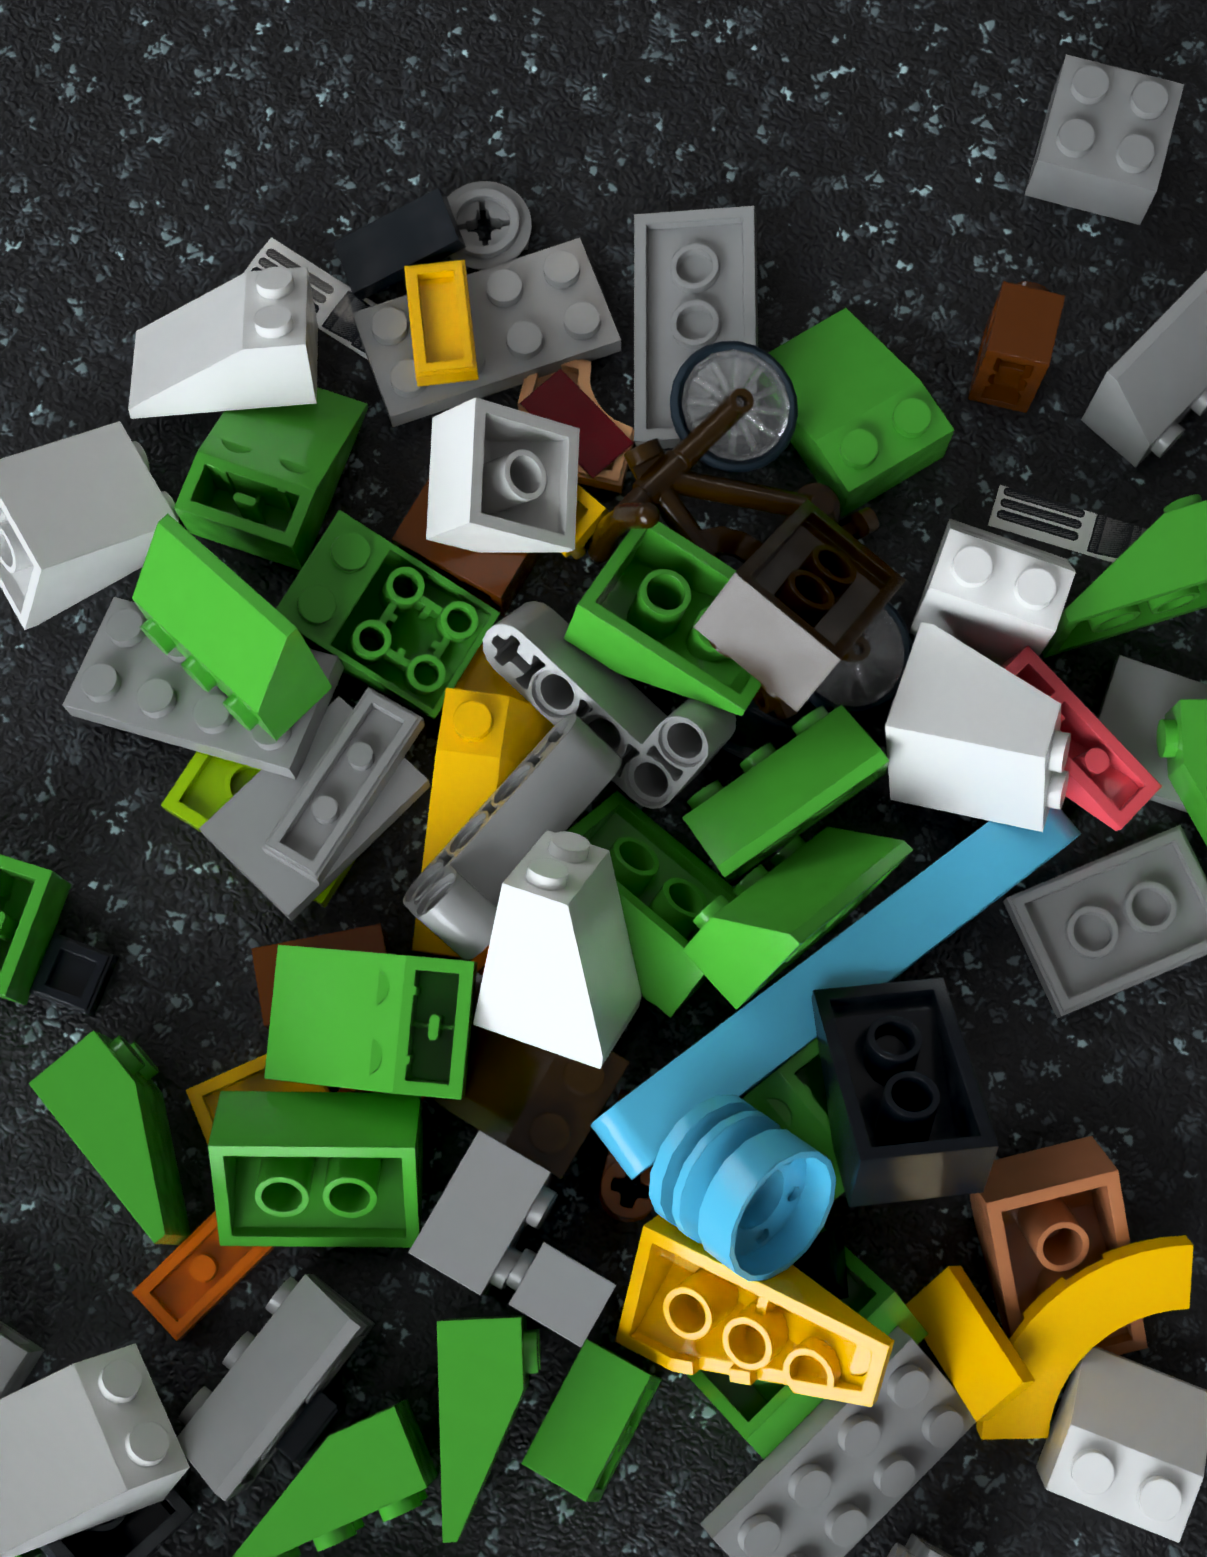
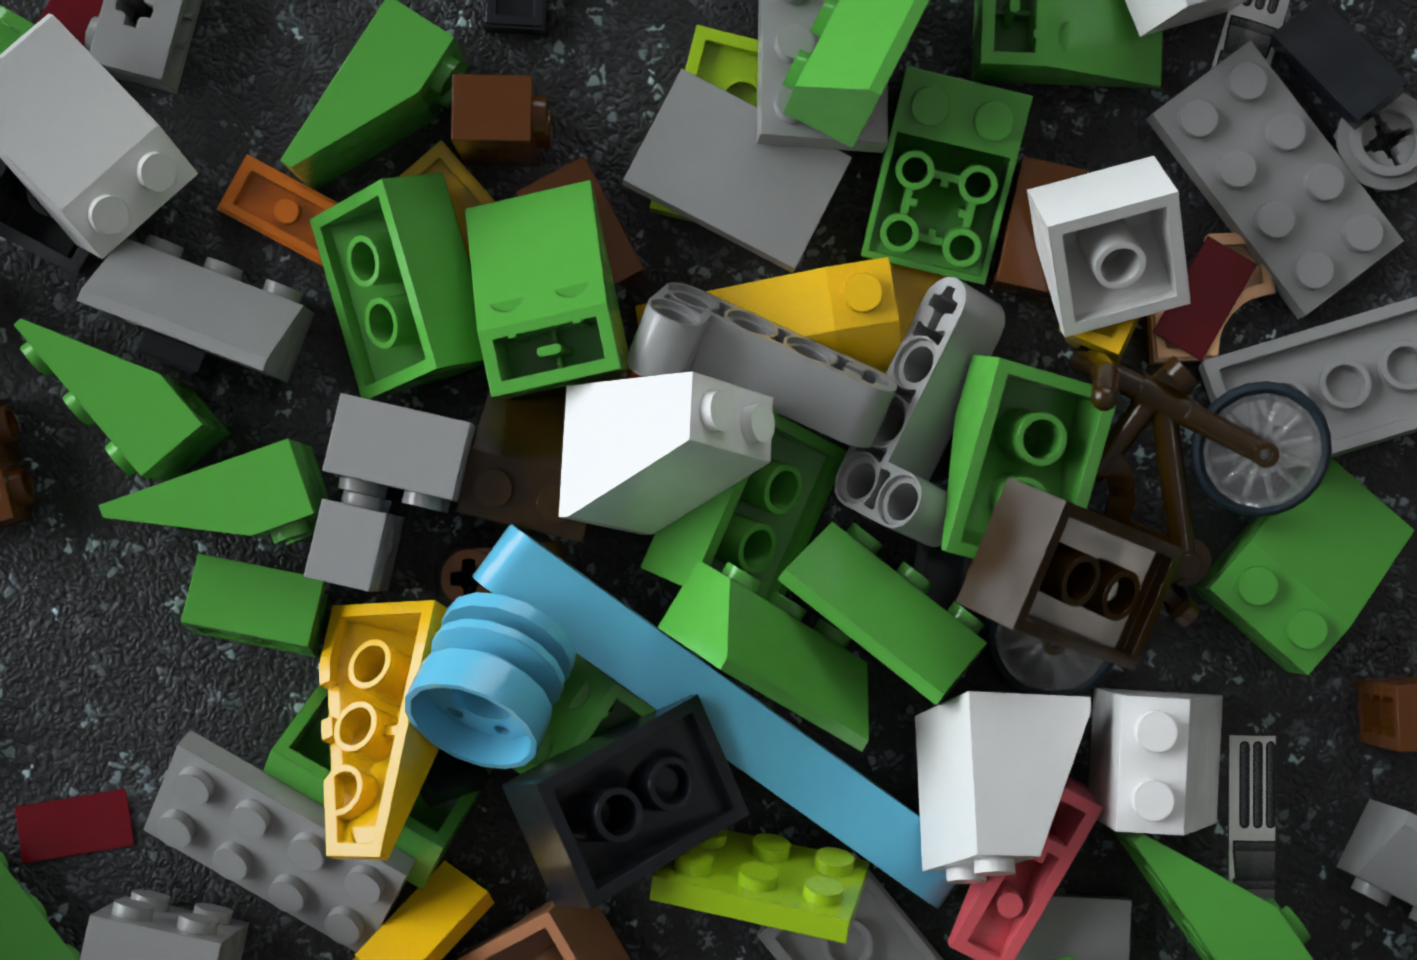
camera: 70 degrees right, 10 degrees up
(188, 1017) = (499, 120): none -> reddish brown brick
(343, 786) = (763, 191): light grey tile -> none
(441, 323) = (1264, 131): yellow tile -> none
(1017, 979) = (767, 883): none -> lime plate

